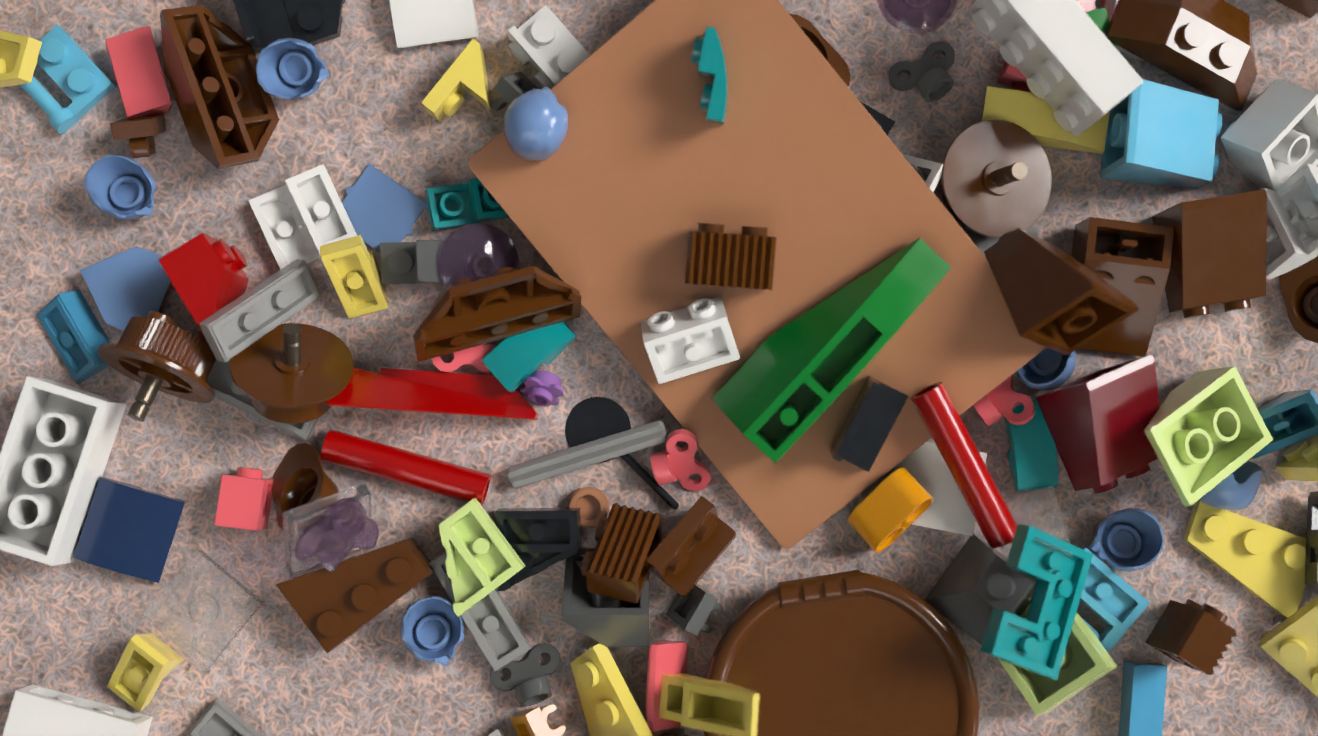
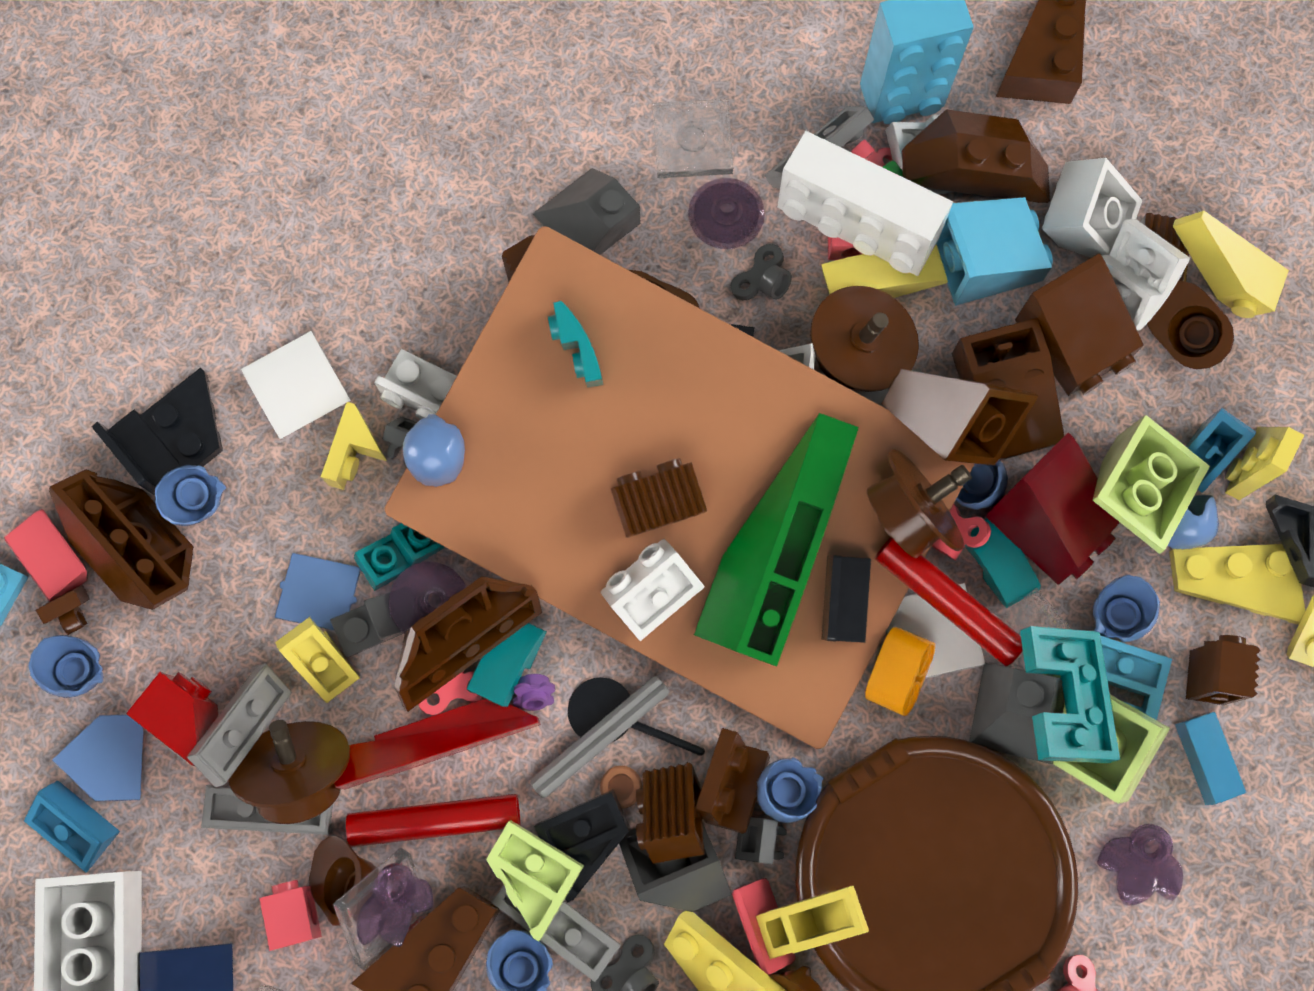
camera: 20 degrees left, 10 degrees down
(161, 360) = (162, 811): reddish brown piece -> none
(302, 217) = (247, 626): white slope -> none
(680, 462) = (689, 708): coral piece -> none
(739, 576) = (788, 790): none -> medium blue hair
(970, 369) = (914, 509): none -> reddish brown piece

